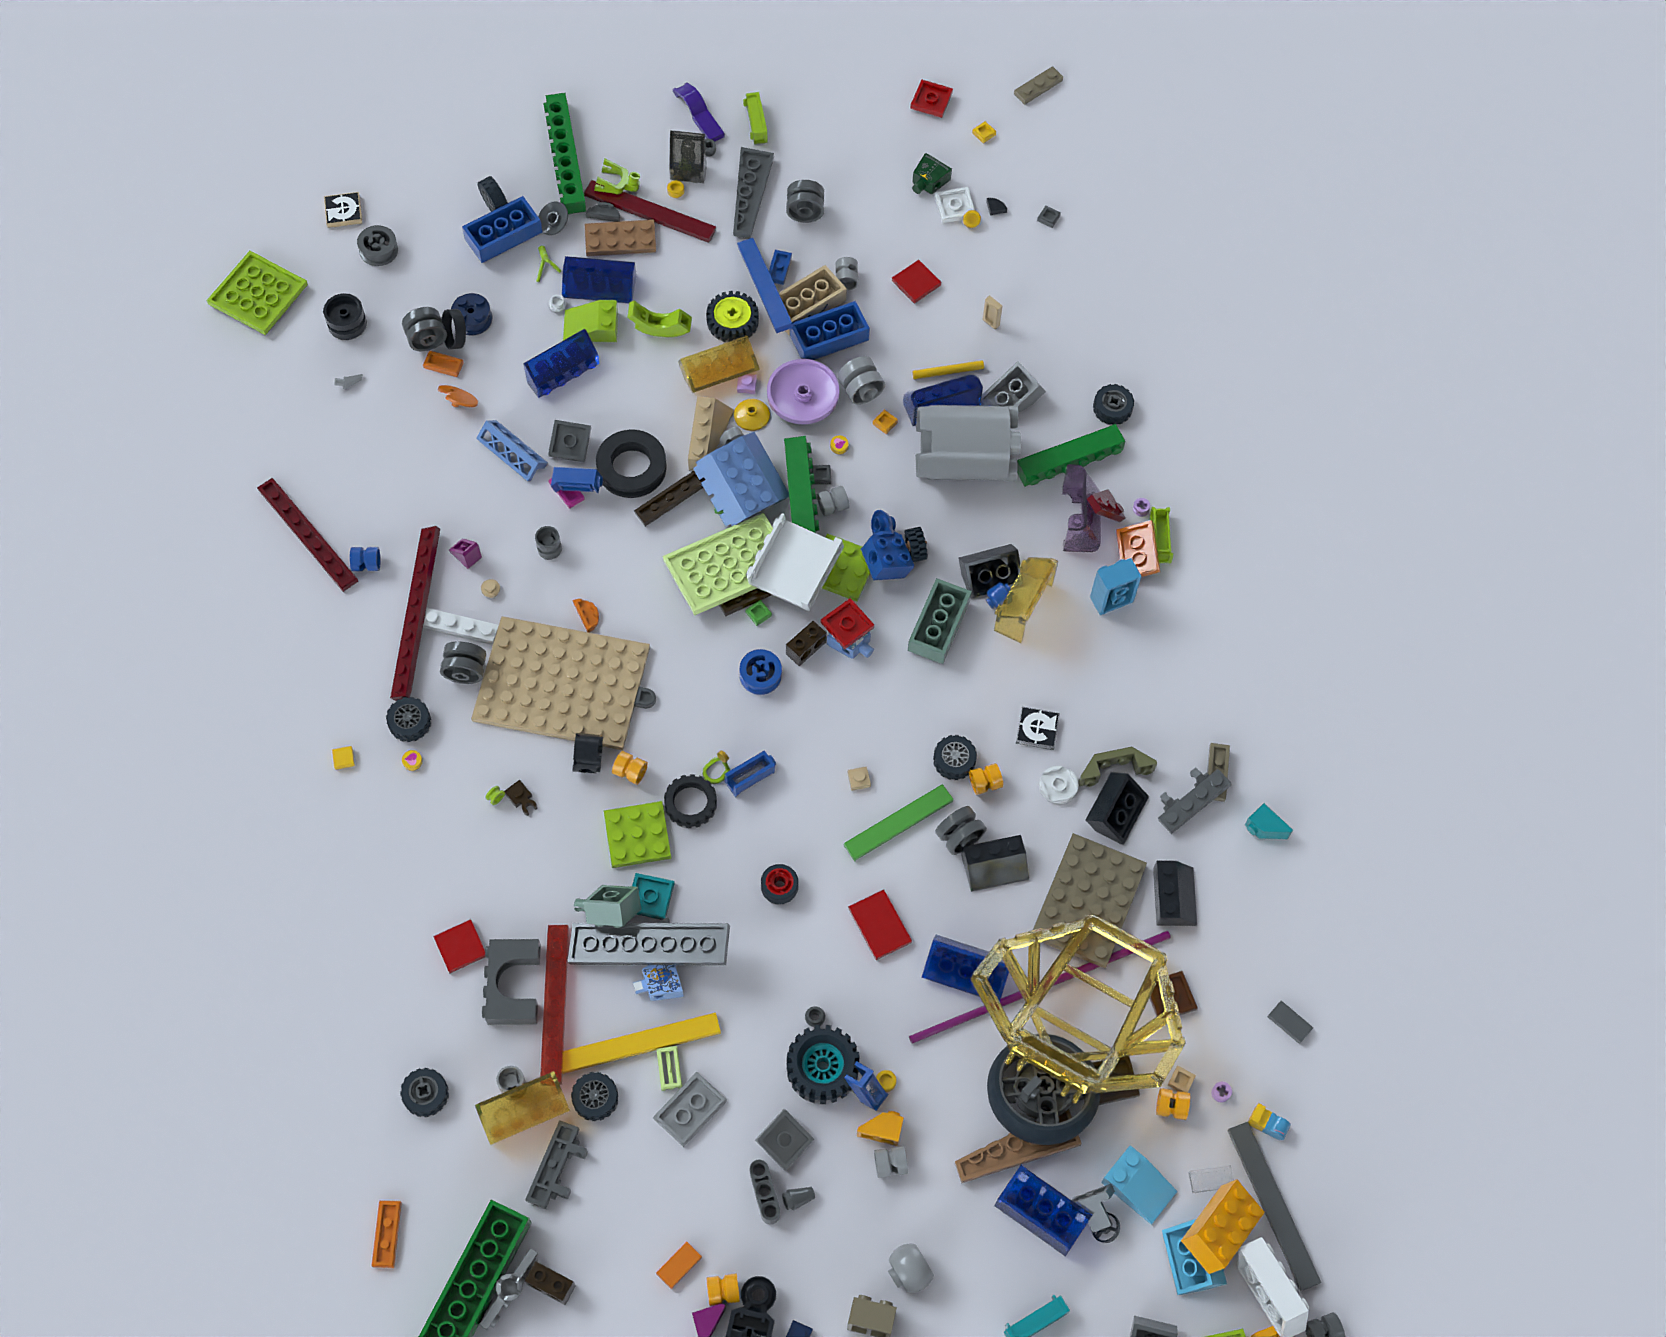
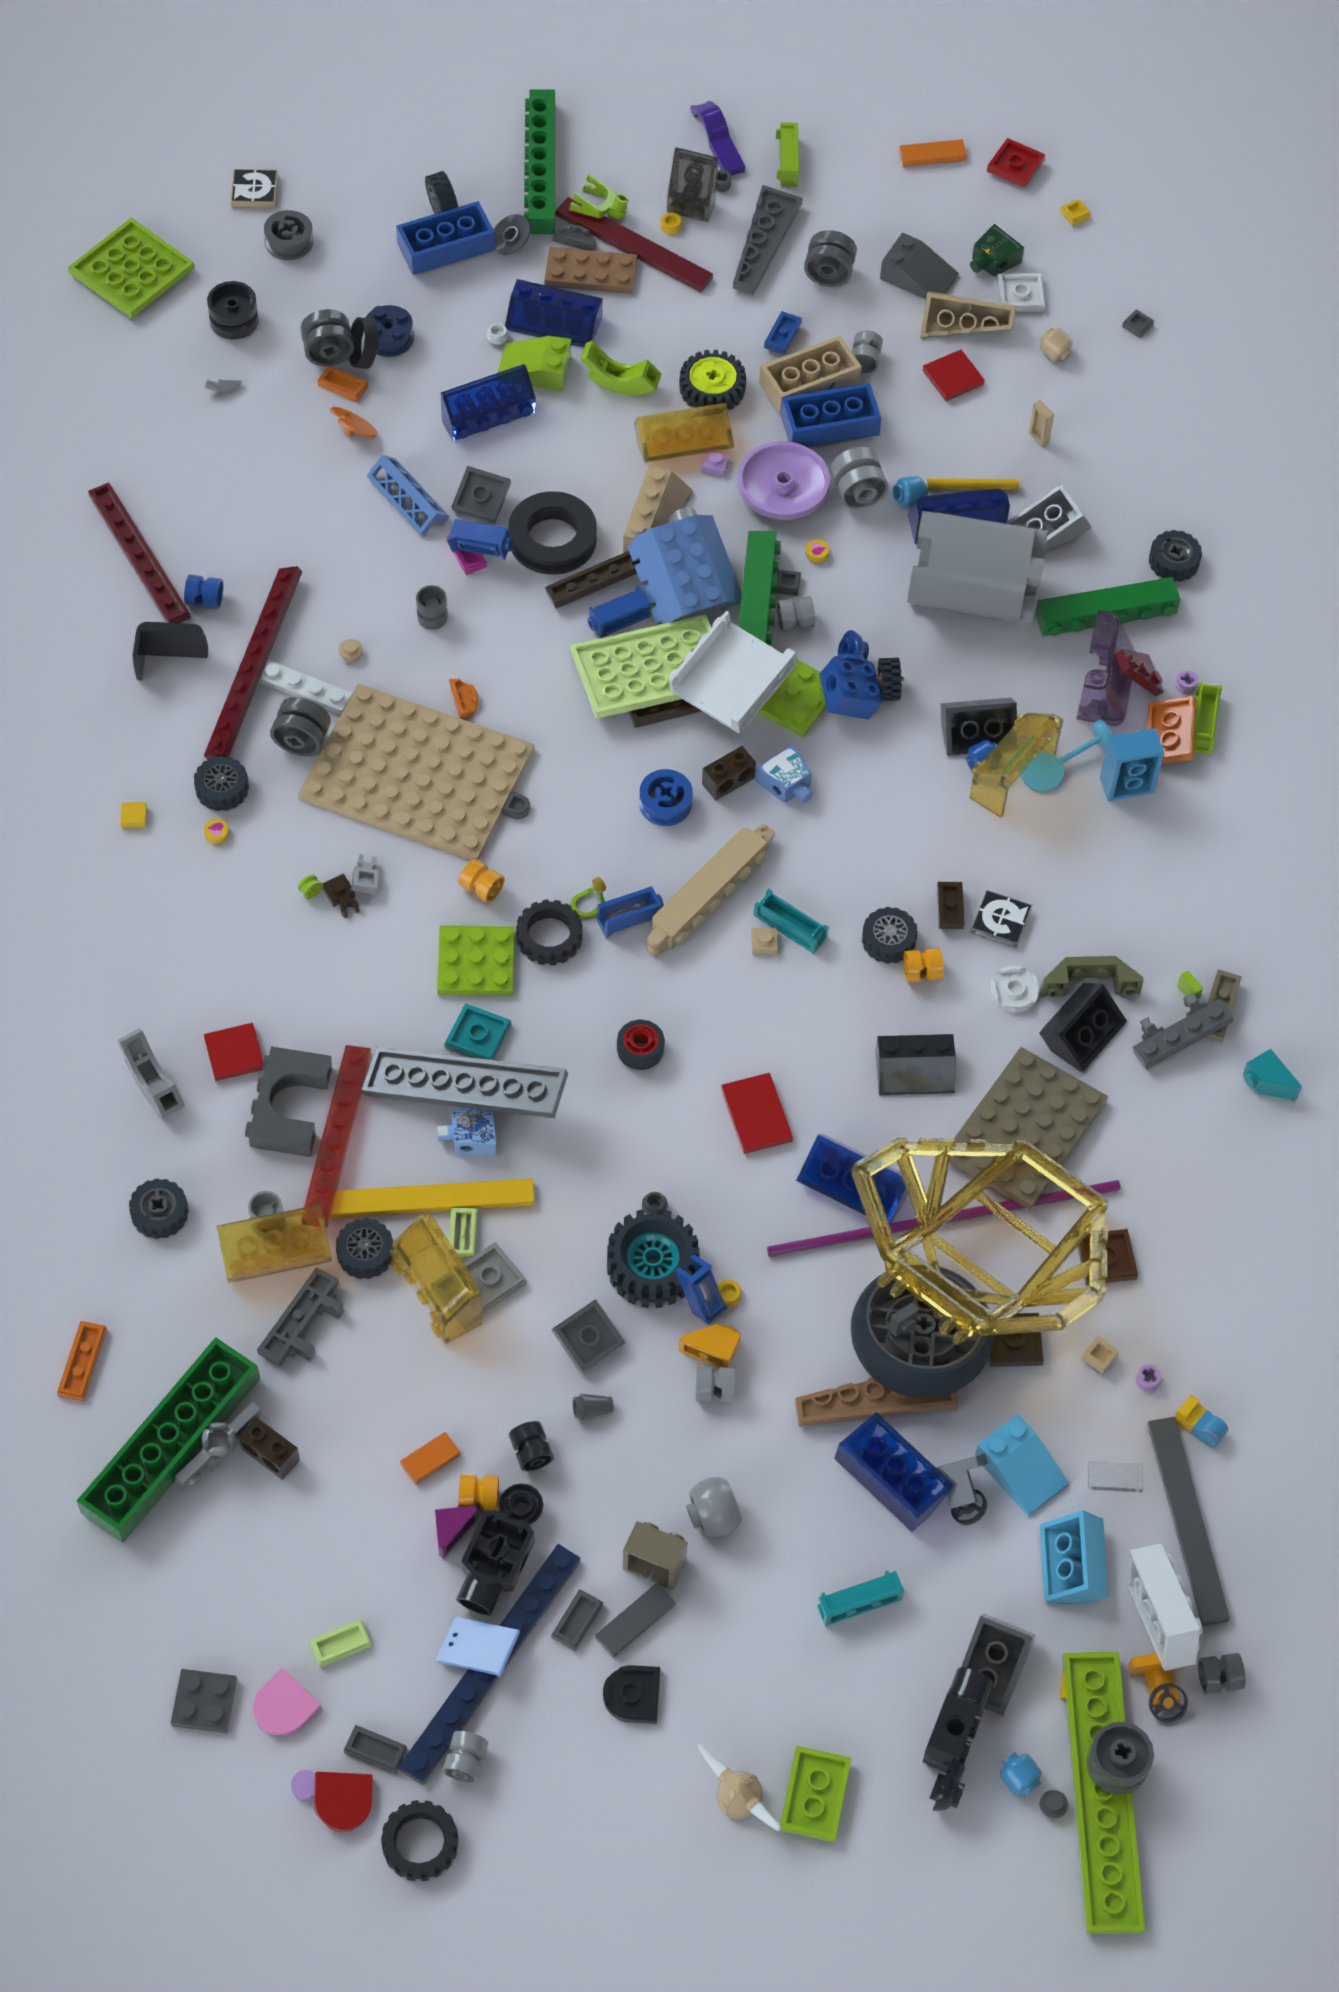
camera: 10 degrees right, 5 degrees down
(343, 606) = (167, 640): none -> black piece
(397, 981) = (149, 1076): none -> light grey arch
(466, 552) = (329, 604): magenta slope -> none
(537, 779) = (365, 877): none -> light grey plate
(543, 253) = (492, 280): lime plant -> none
(586, 753) = (432, 855): black brick -> none
(610, 905) = (426, 1031): sand green brick -> none
(658, 1115) = (440, 1277): none -> clear yellow windscreen
(695, 522) = (619, 613): none -> blue window
(751, 421) = (714, 499): yellow dish -> none
(755, 1239) = (531, 1446): none -> black wheel
(758, 612) = (677, 730): bright green tile -> none
(765, 285) = (759, 348): blue tile -> none
(768, 1201) = (552, 1403): dark grey beam -> none
(807, 742) = (708, 888): none -> tan hinge
(847, 623) = (784, 755): red plate -> none
(866, 99) = (932, 152): none -> orange tile
(873, 198) = (916, 268): none -> dark grey slope
(876, 759) = (791, 922): none -> teal container
(885, 421) = (880, 533): light orange tile -> none
(898, 822) = (803, 999): bright green tile -> none
(901, 383) = (909, 490): none -> dark azure head
(912, 231) = (959, 314): none -> tan wedge
(939, 621) = (901, 772): sand green brick -> none
(960, 829) = (878, 1015): dark grey wheel -> none
(971, 219) = (1038, 311): yellow tile -> none
(991, 244) = (1056, 344): none -> tan head
(996, 206) = (1072, 302): black tile -> none
(997, 724) = (950, 905): none -> dark brown plate
(1038, 85) = (1156, 166): dark tan plate -> none
(1052, 598) = (1048, 771): none -> medium azure piece
(1174, 894) = (1136, 1138): black slope -> none
(1180, 1107) = (1092, 1382): light orange wheel -> none
(1192, 760) = (1188, 984): none -> lime tile
(1222, 1226) = (1115, 1524): light orange brick -> none
(1290, 1022) = (1253, 1312): dark grey tile -> none

